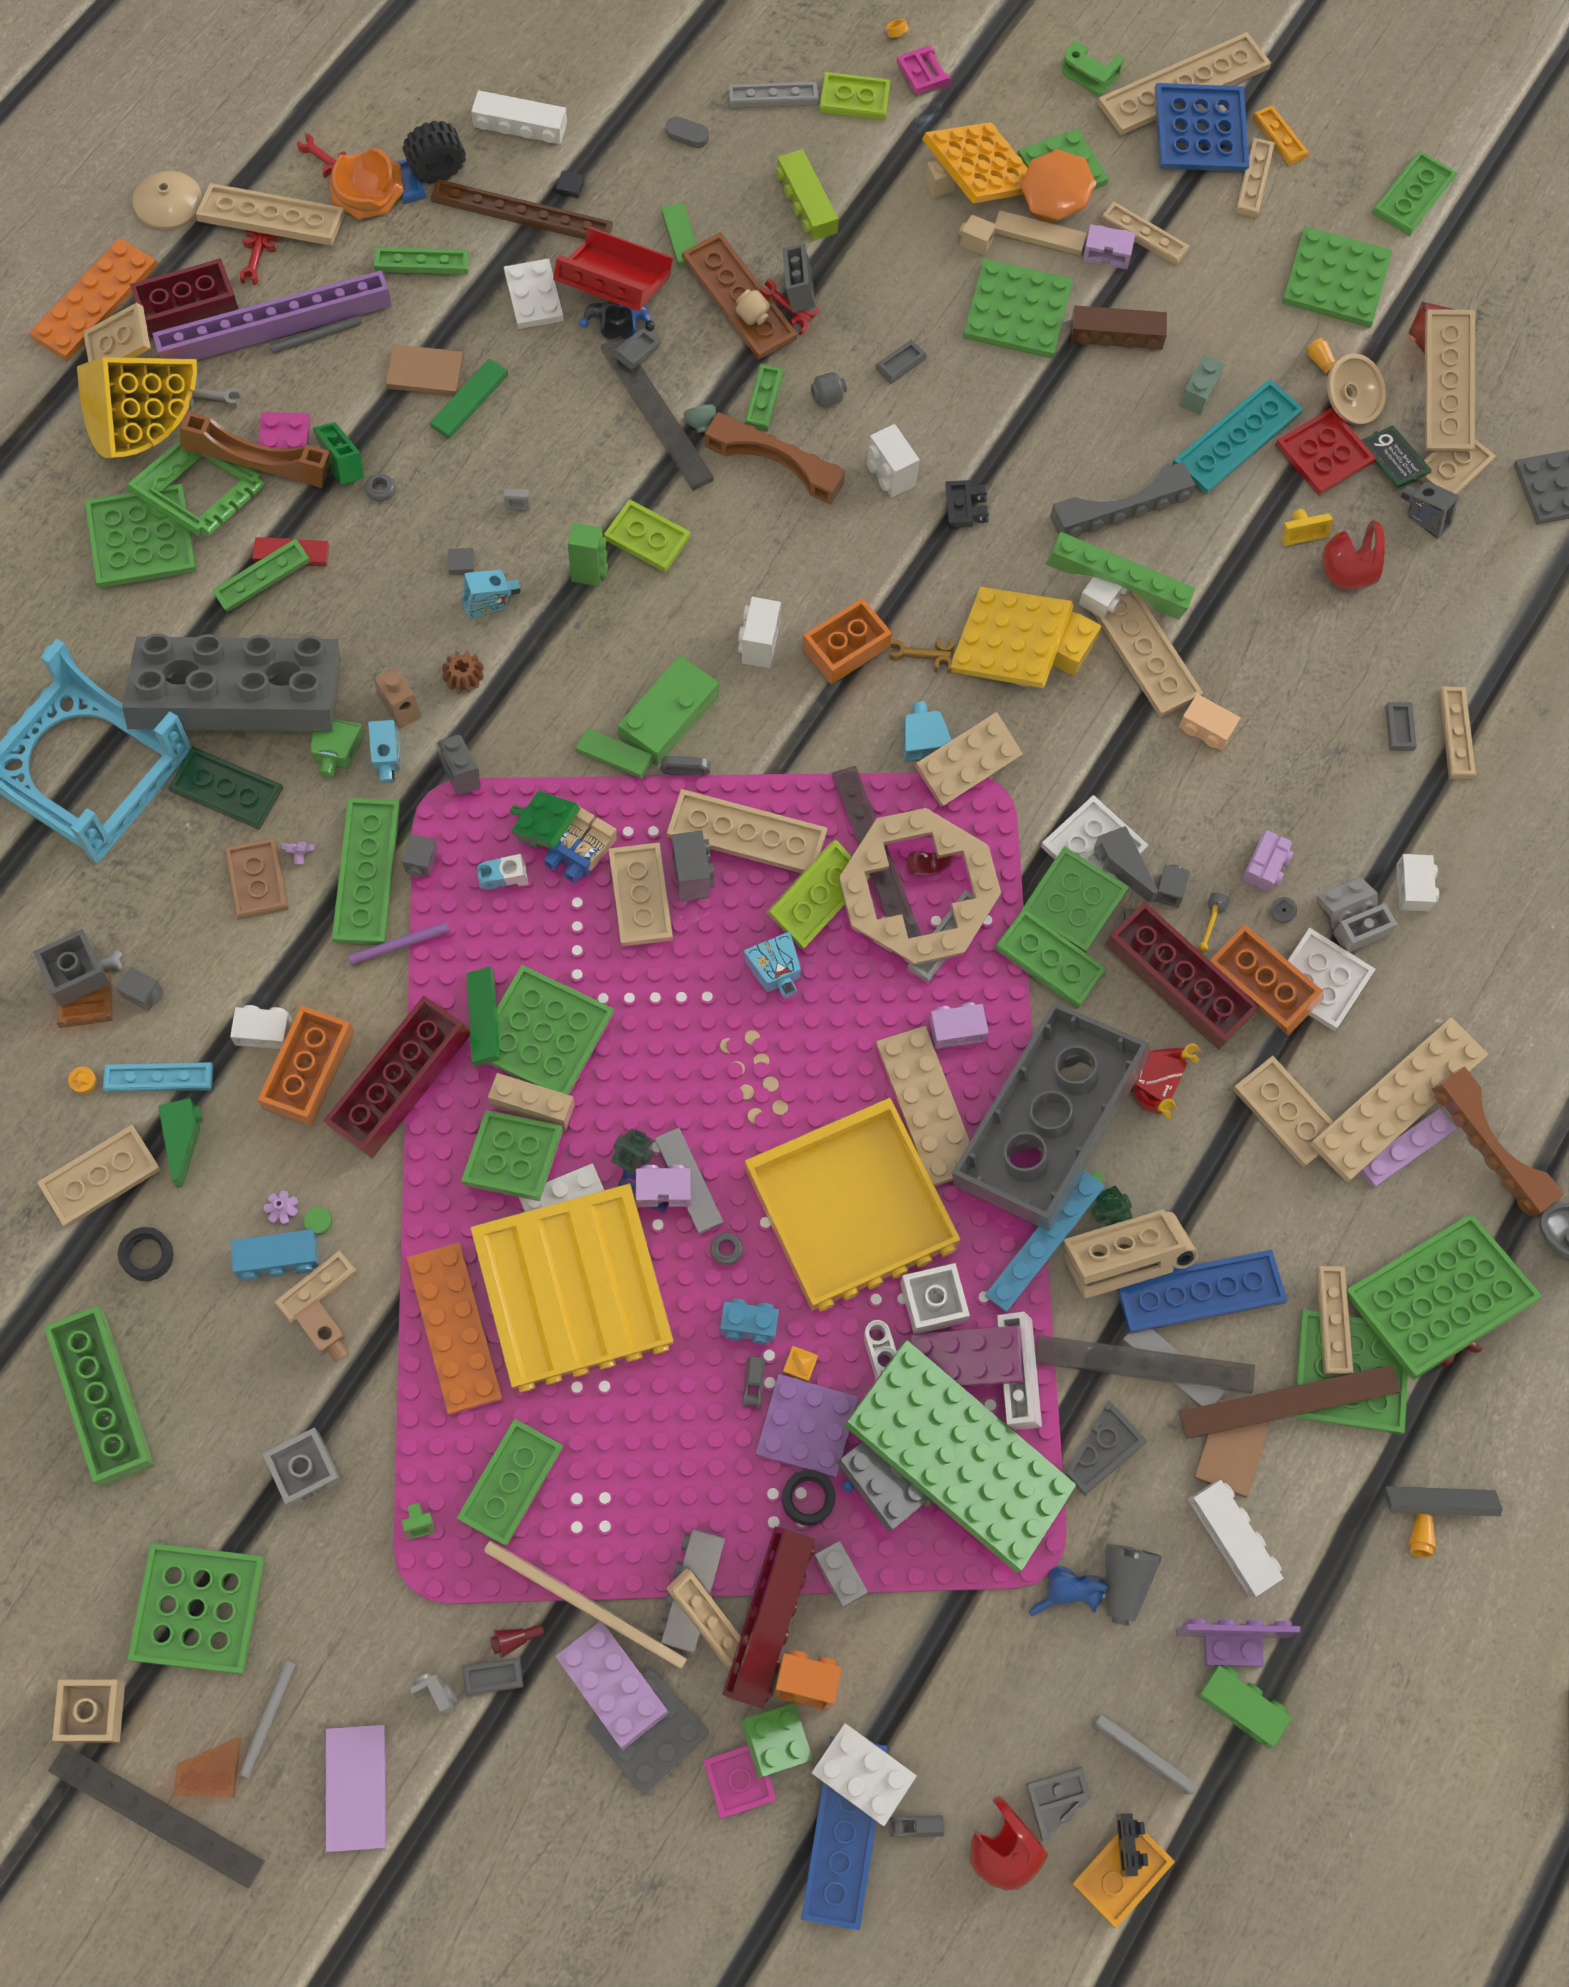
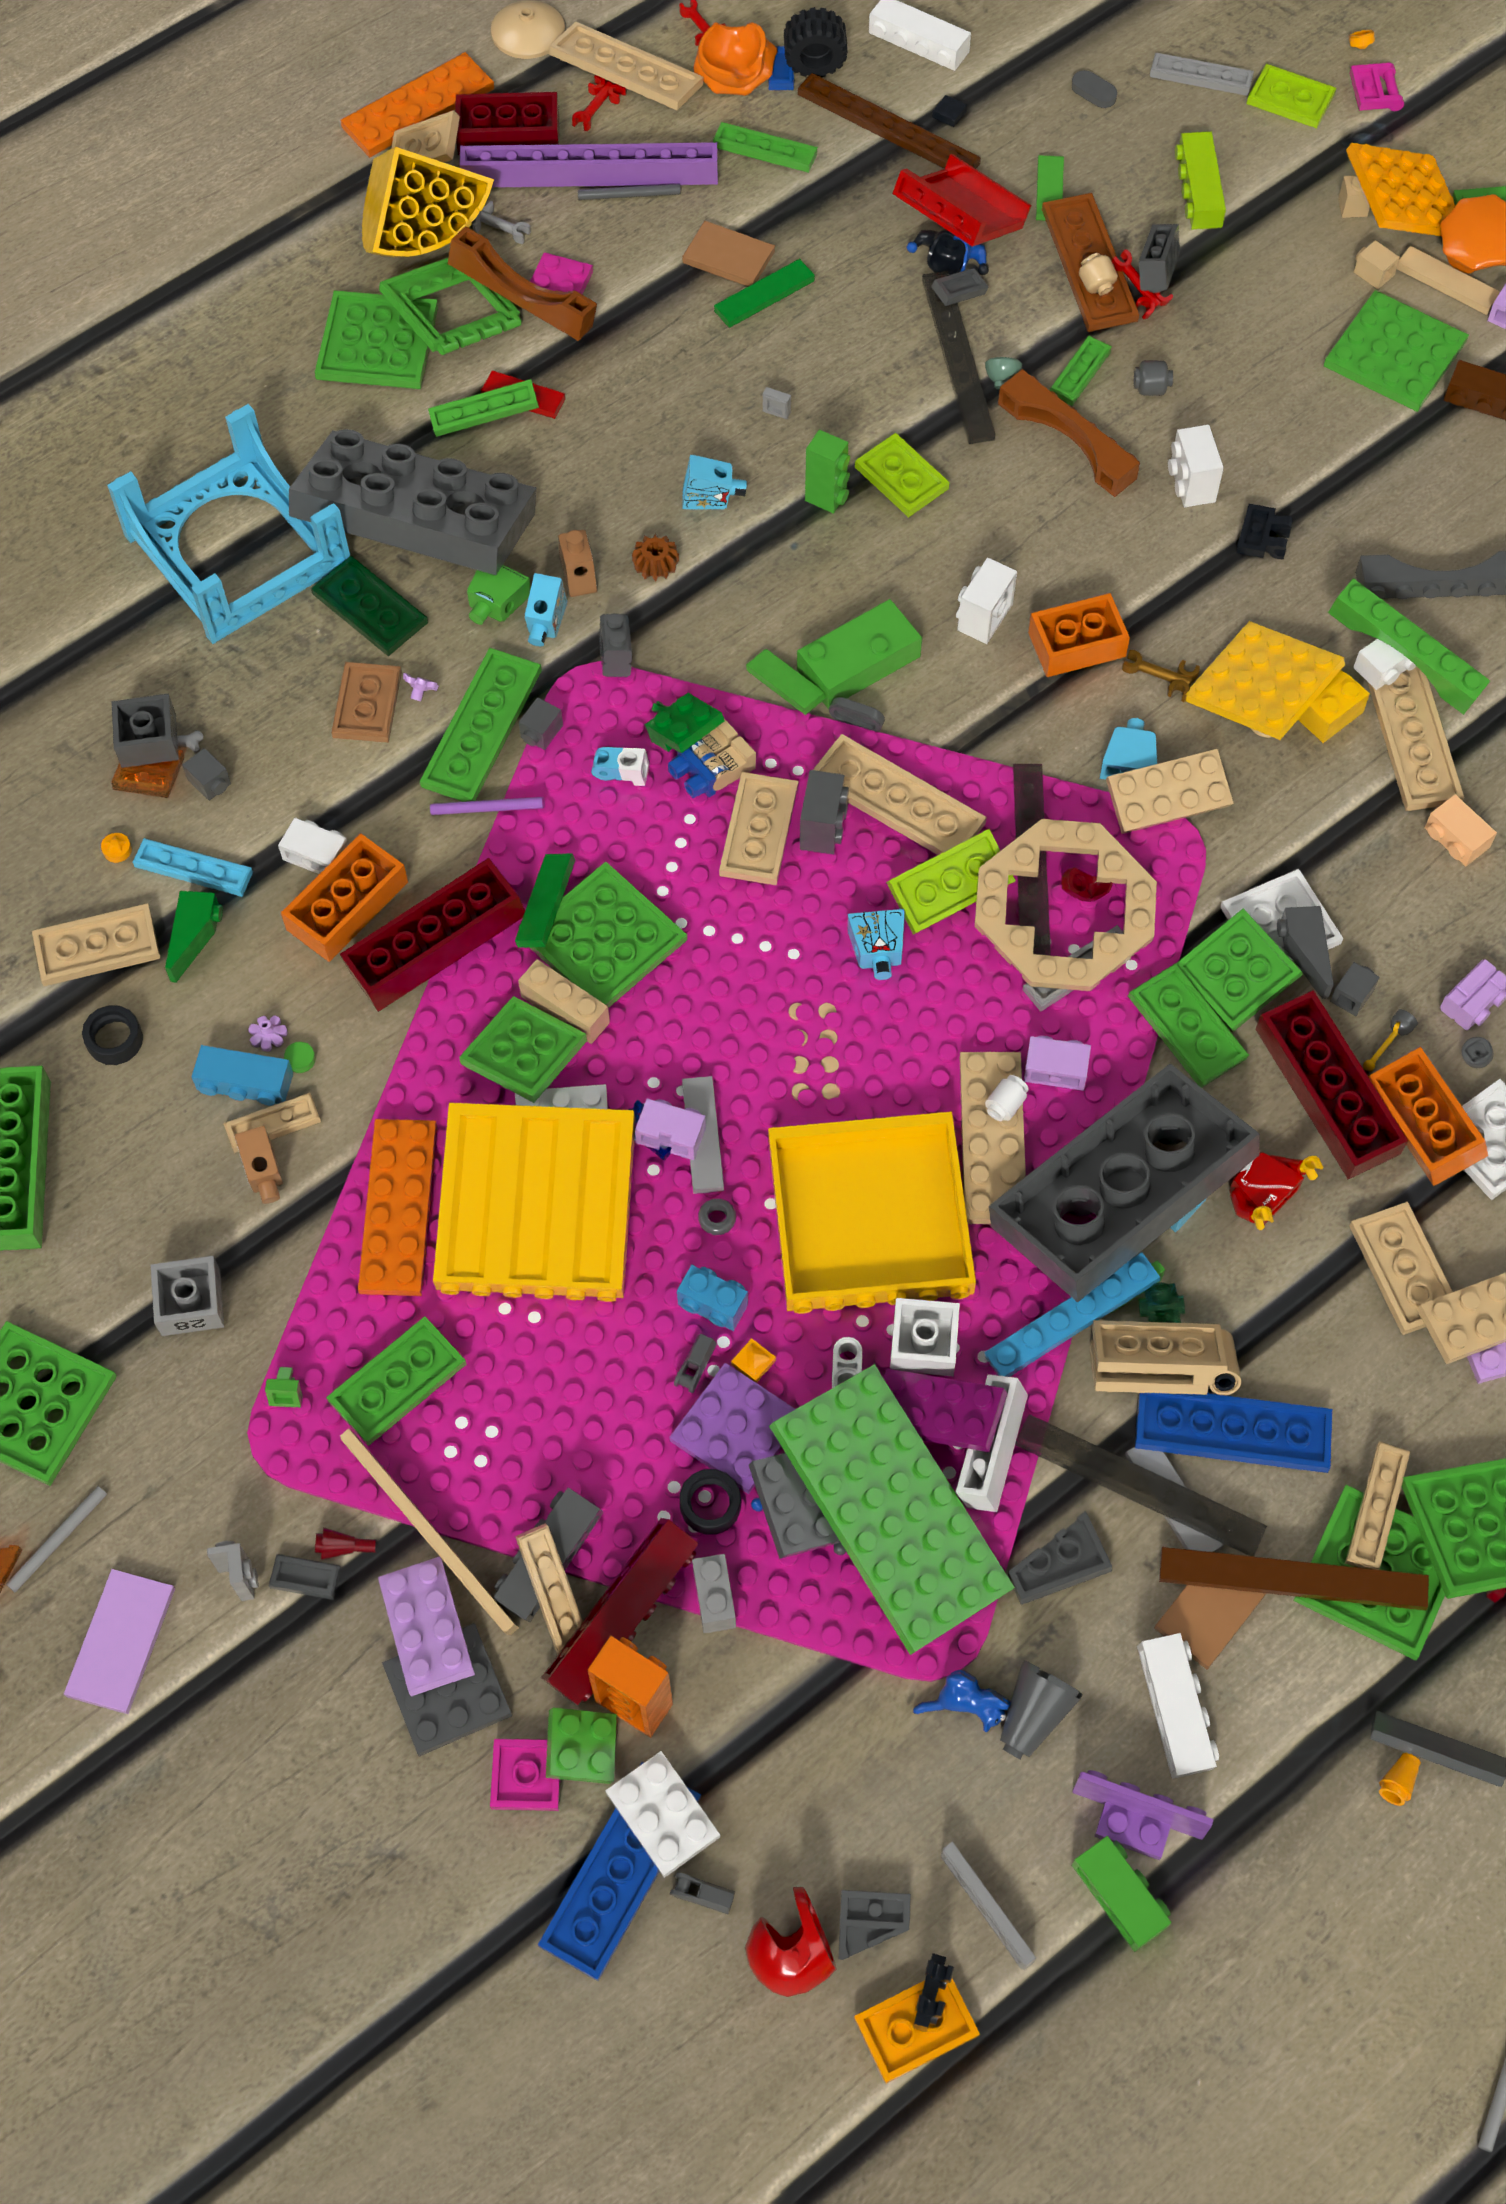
camera: 25 degrees right, 5 degrees down
(344, 456) = (610, 312): green slope -> none
(380, 479) = (638, 347): dark grey piece -> none
(461, 560) = (695, 446): dark grey tile -> none
(533, 293) = (870, 208): white plate -> none
(632, 1150) = (652, 1081): clear green brick -> none
(901, 361) = (1244, 372): dark grey tile -> none
(931, 1072) = (1006, 1098): none -> white brick

